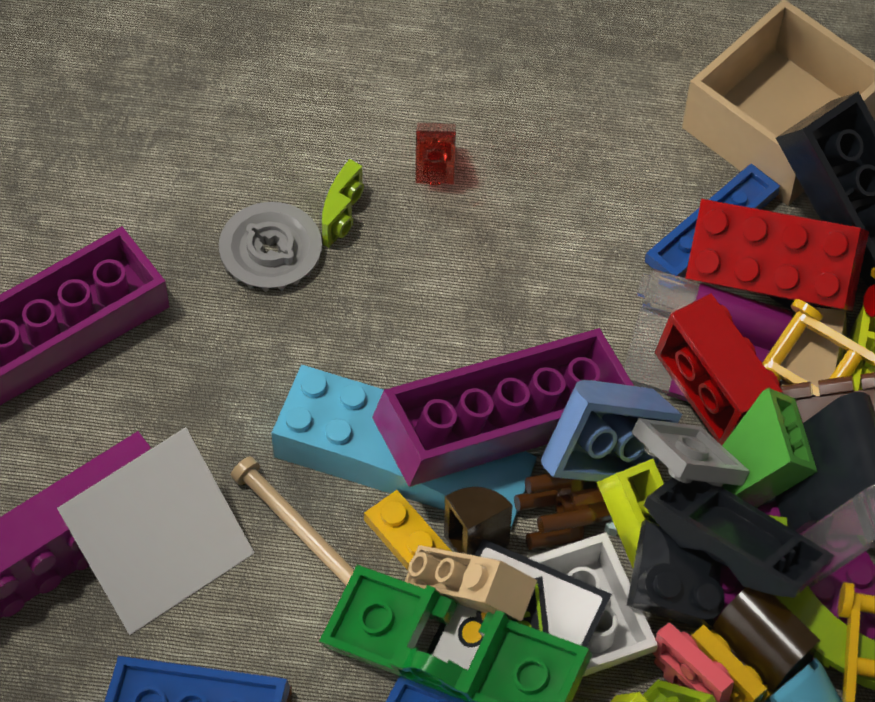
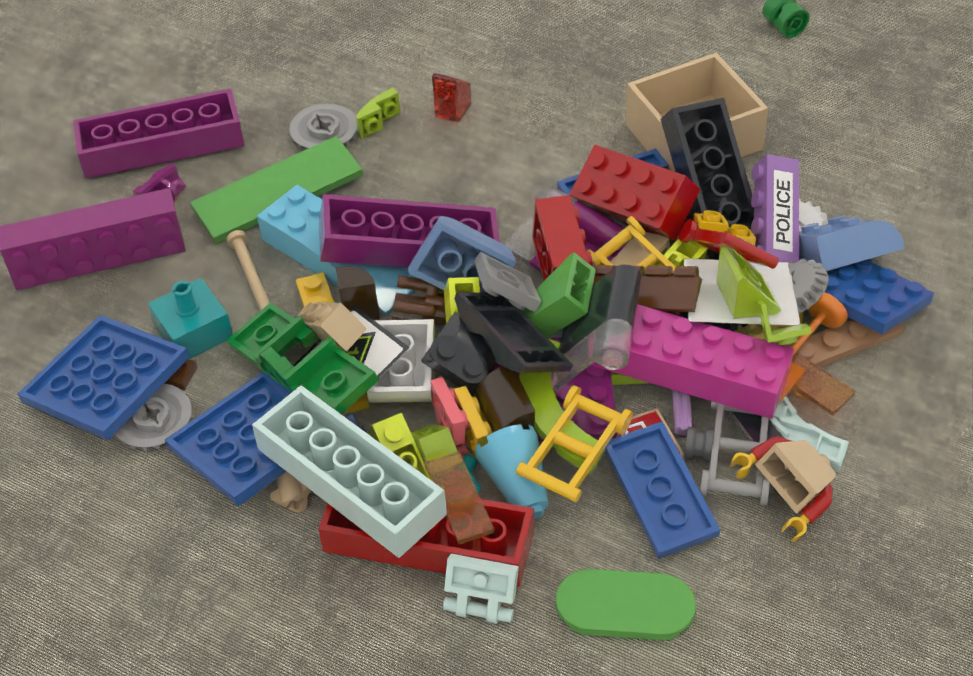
camera: 25 degrees right, 10 degrees down
(93, 419) = (162, 180): none -> magenta hips
(156, 530) = (155, 246): white sticker -> none
(254, 623) = (191, 317): none -> teal brick
(259, 365) = (239, 203): none -> bright green tile

